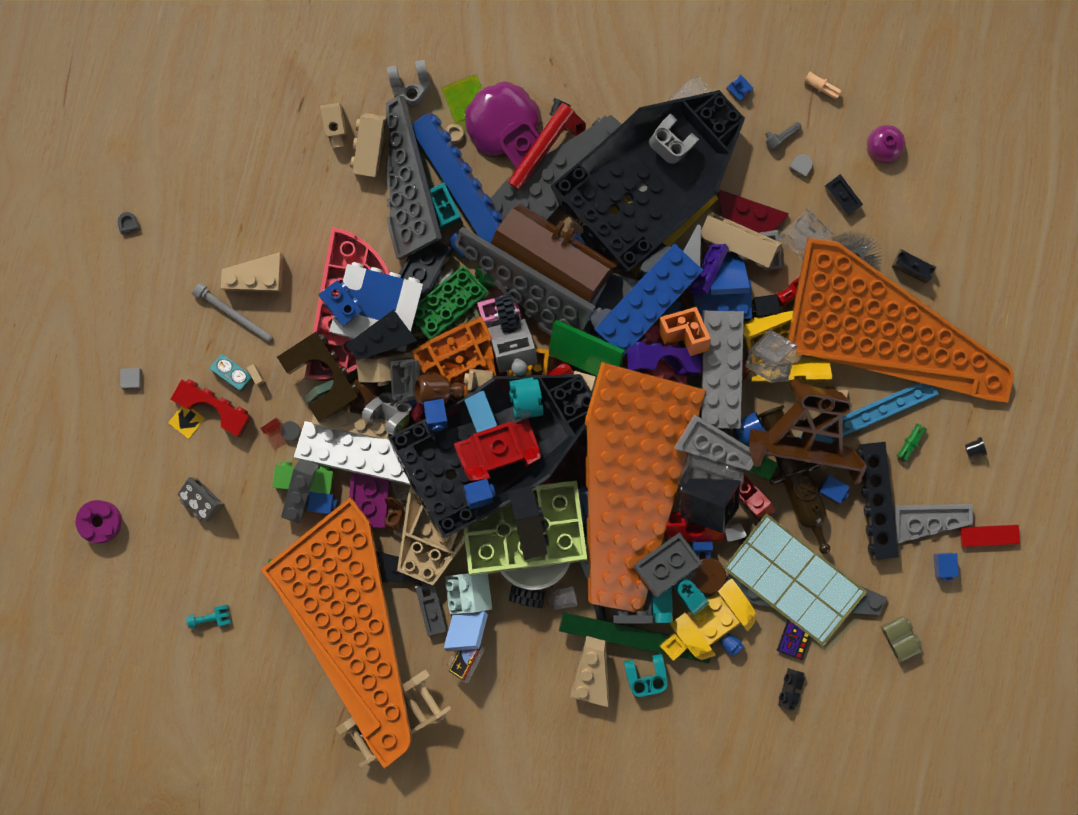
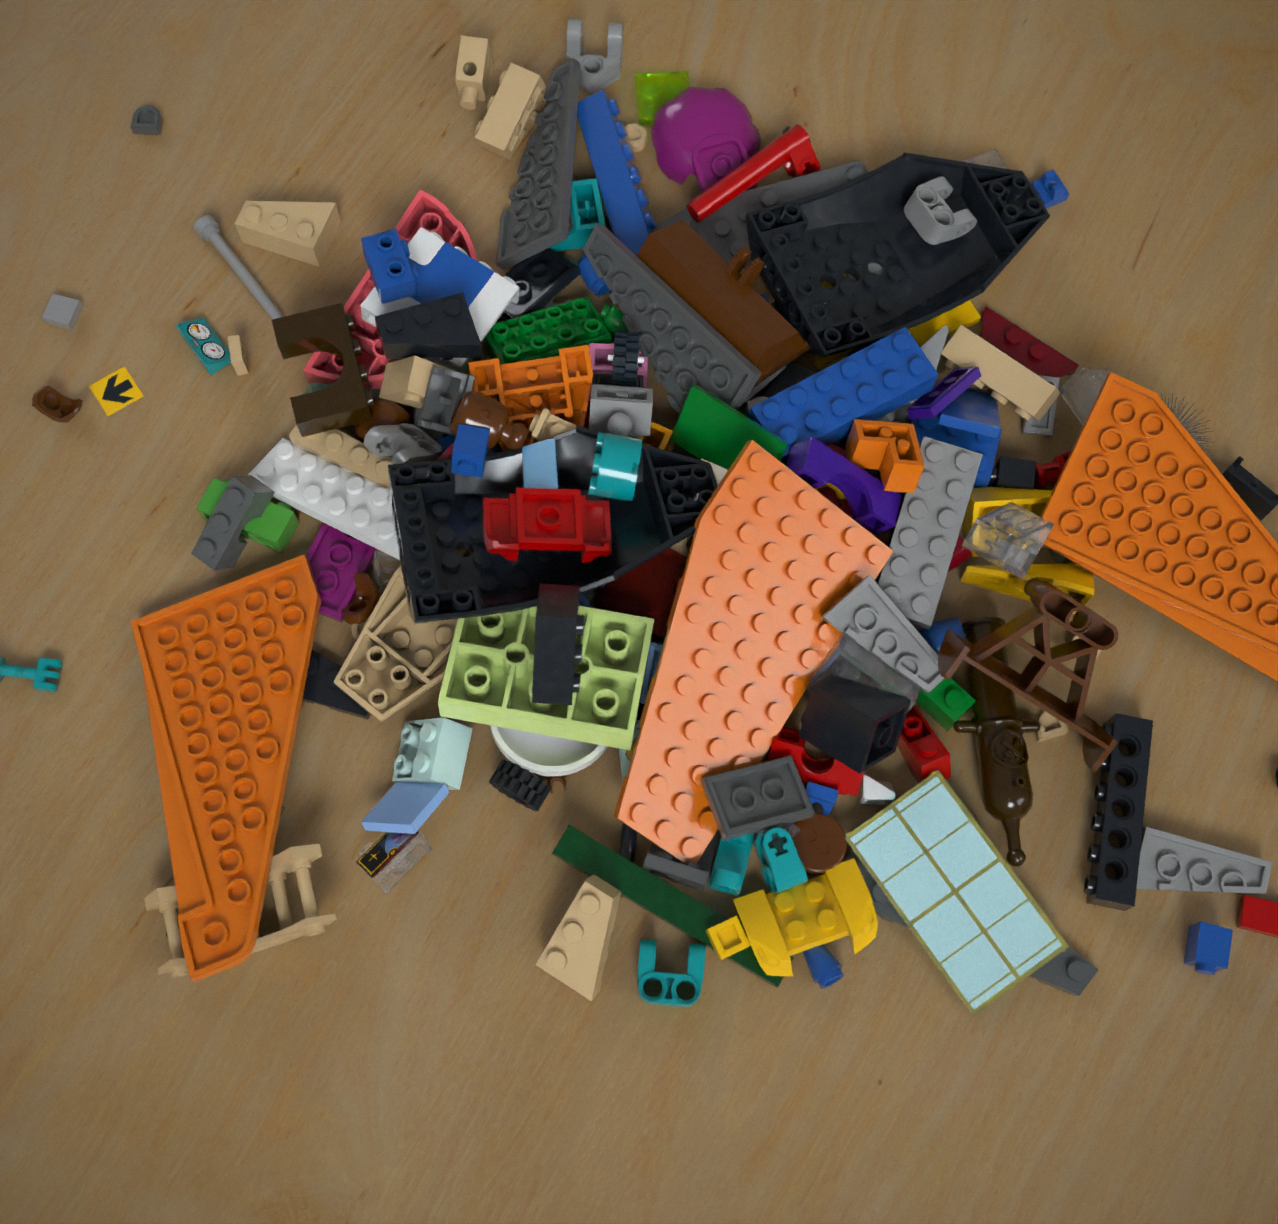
camera: 15 degrees right, 15 degrees down
(156, 444) = (56, 405): none -> reddish brown hair
(200, 499) = (84, 494): dark grey slope -> none
(232, 419) = (135, 357): red arch -> none
(271, 426) = (231, 429): clear red tile -> none
(290, 430) = (256, 445): dark grey tile -> none
(321, 503) = (258, 553): blue brick -> none
(430, 609) = (365, 762): dark grey plate -> none
(479, 493) = (494, 571): blue brick -> none
(562, 598) = (576, 805): clear slope -> none
(774, 141) = (1082, 268): dark grey piece -> none
(788, 697) = (909, 1059): black hinge -> none
(793, 641) = (926, 994): piece -> none
(801, 164) = (1113, 309): light grey tile -> none
(822, 85) = (1169, 218): light nougat axle -> none
(834, 489) = (1053, 773): blue brick -> none
(843, 195) = (1166, 364): black plate -> none
(883, 408) = (1150, 678): dark azure tile -> none
(885, 144) = (1244, 316): magenta cylinder -> none
(901, 639) = (1108, 1045): olive brick -> none
(911, 442) = (1191, 740): green pin -> none

